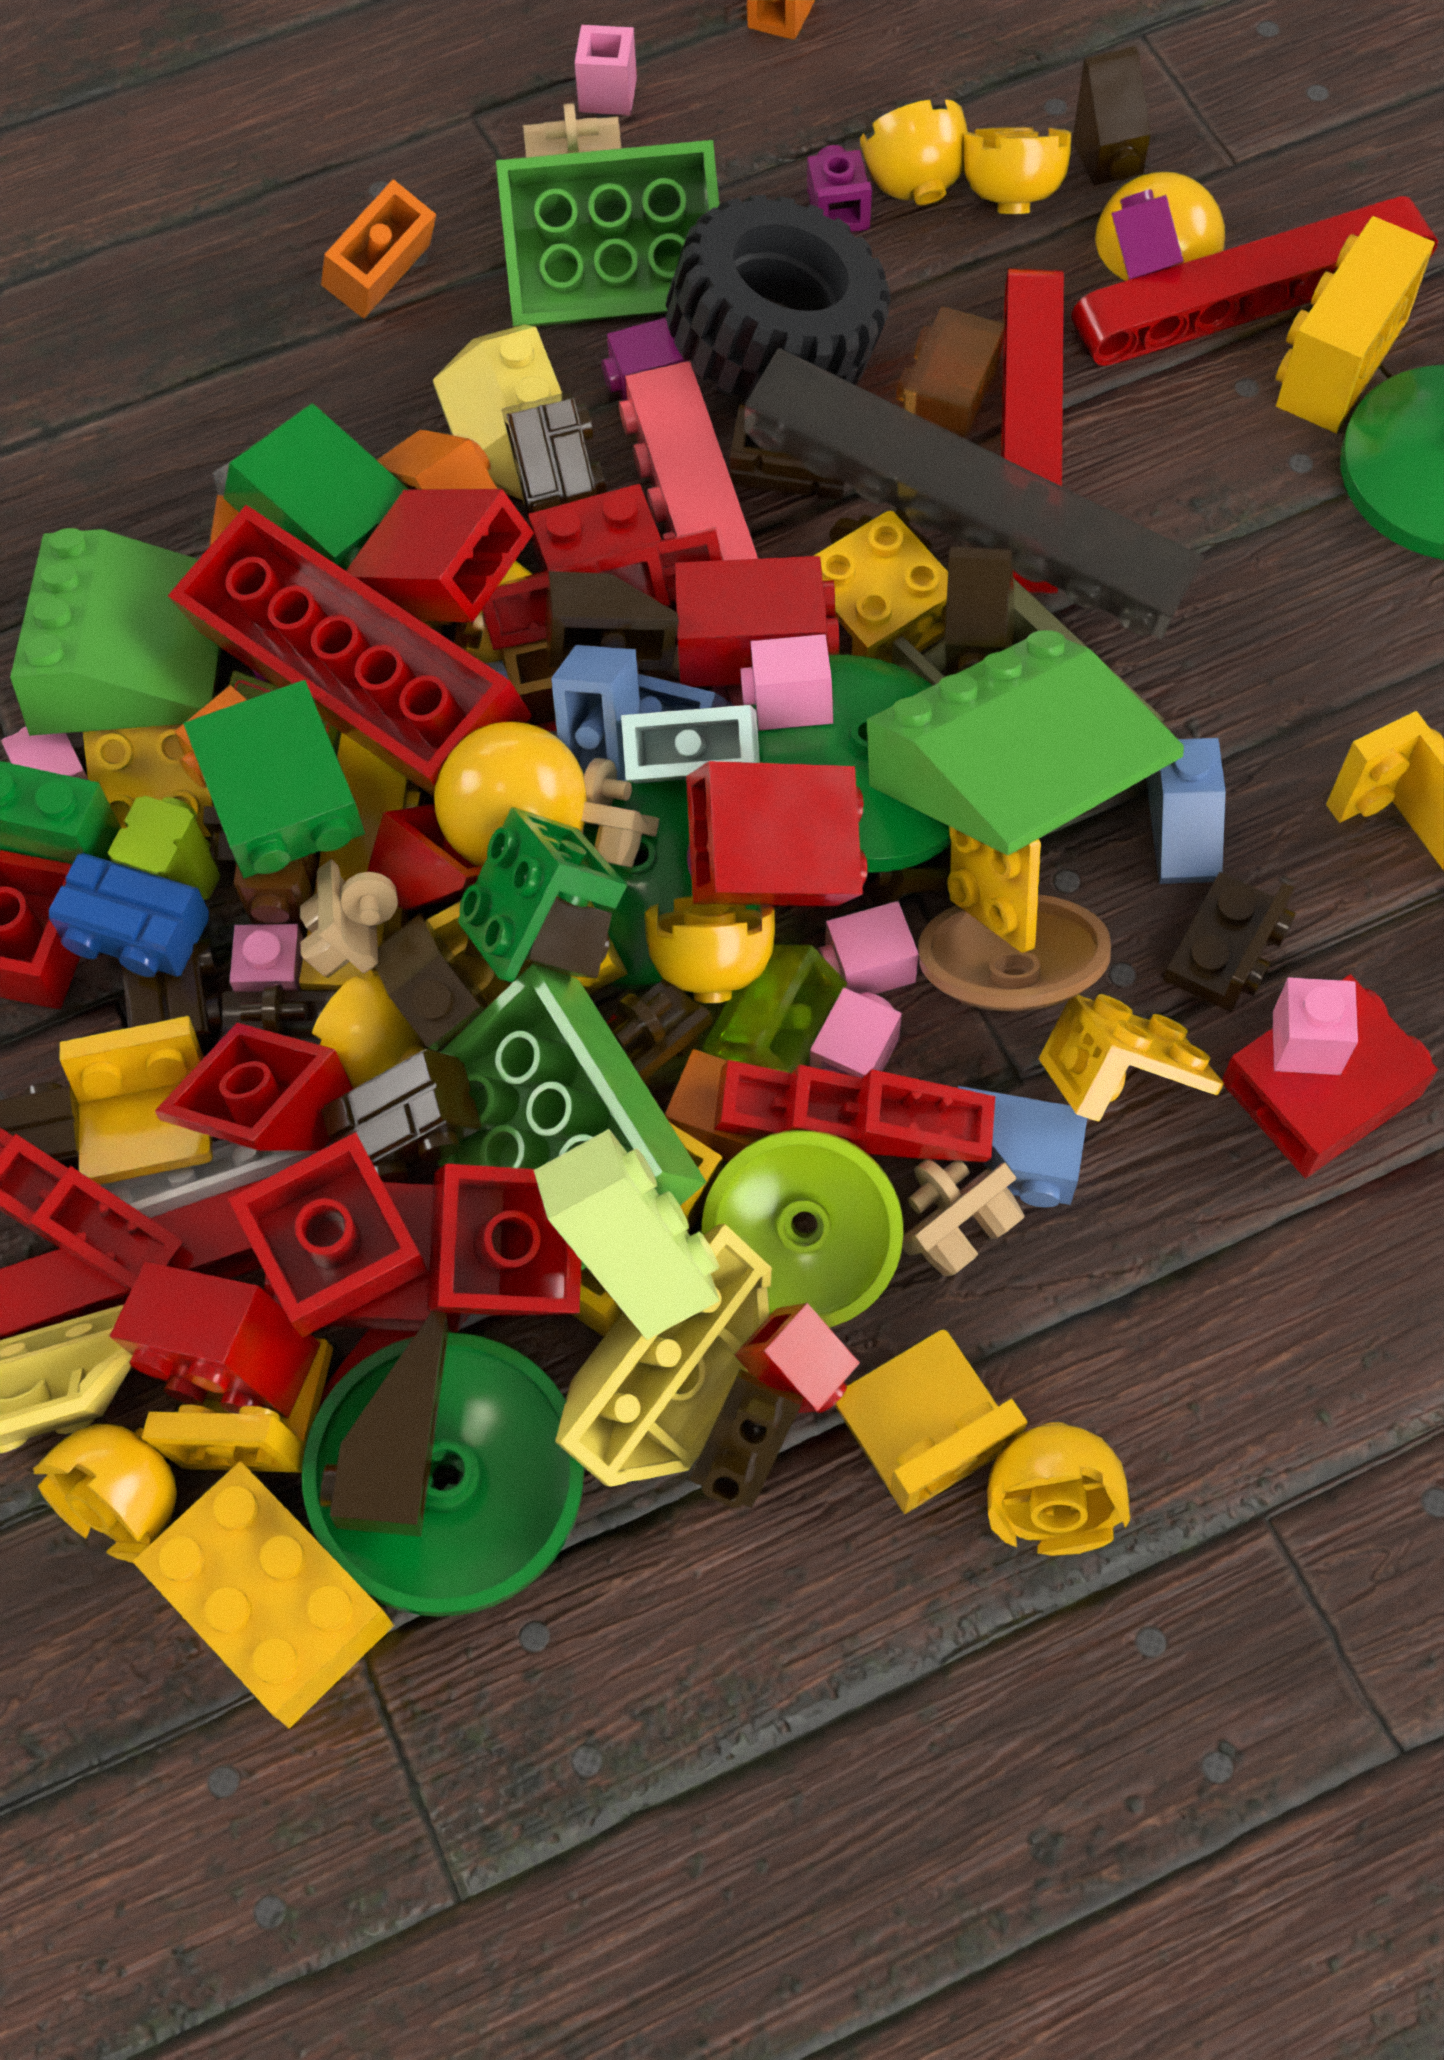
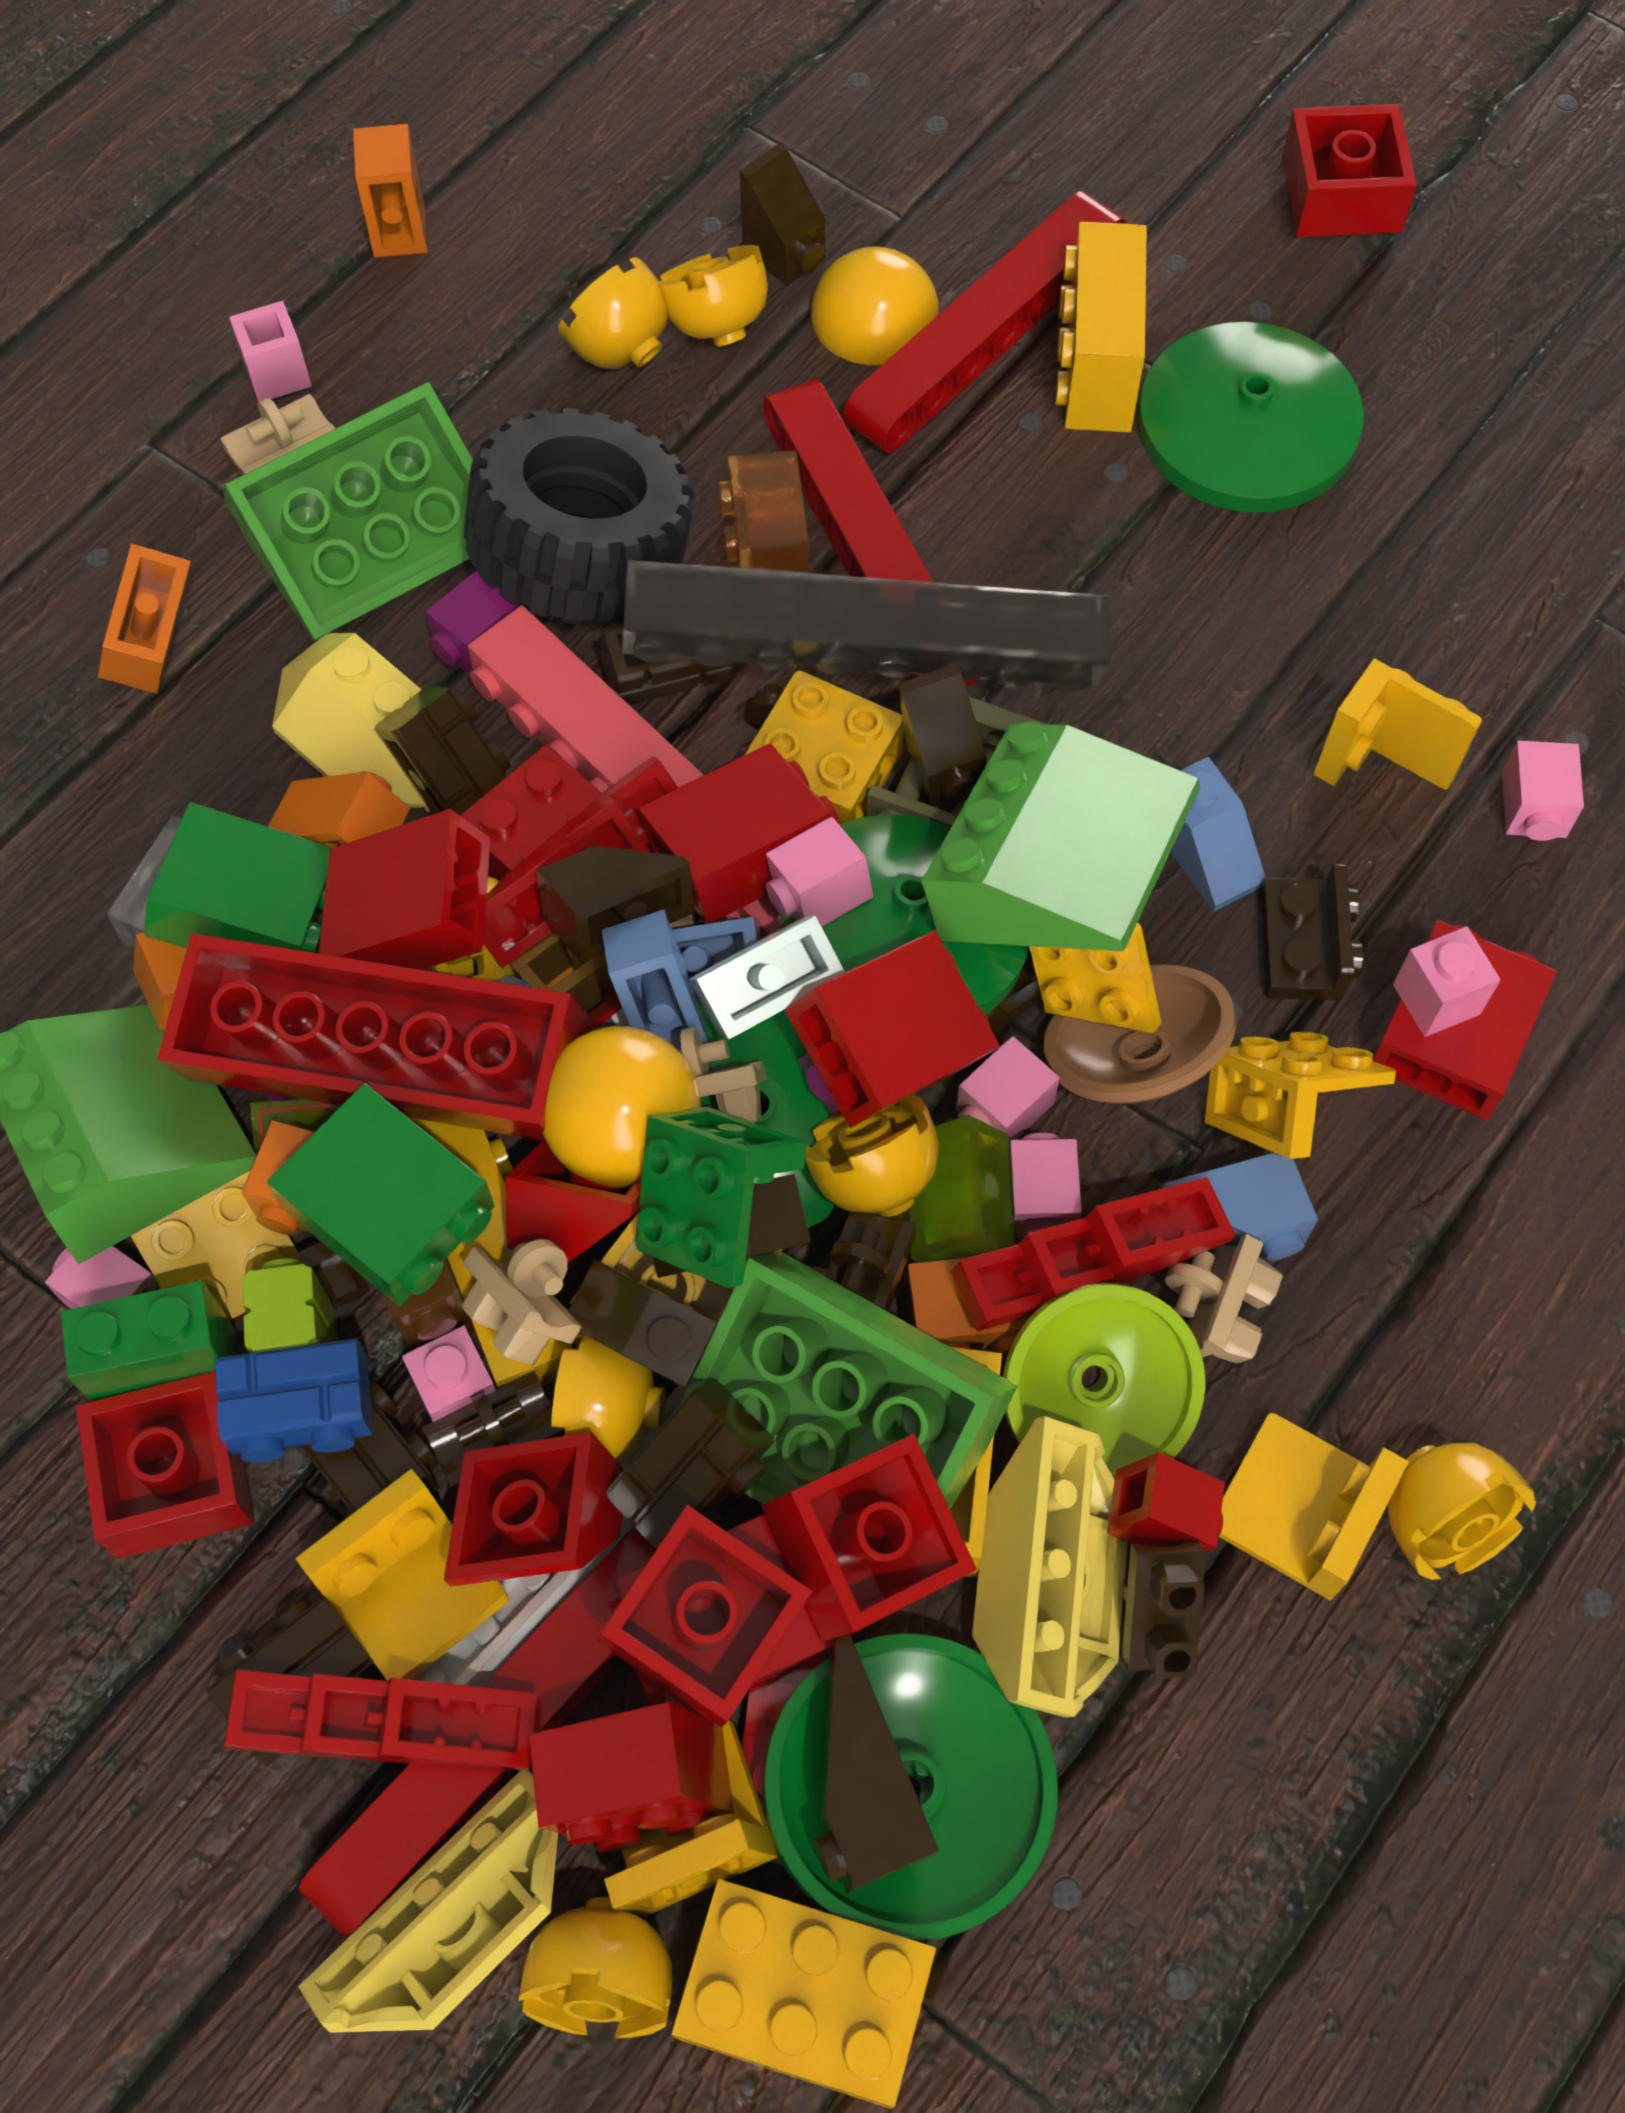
camera: 30 degrees left, 0 degrees up
(629, 1233) = (993, 1469): yellowish green brick -> none
(839, 178) = (554, 373): magenta brick -> none
(1146, 234) = (877, 316): magenta brick -> none

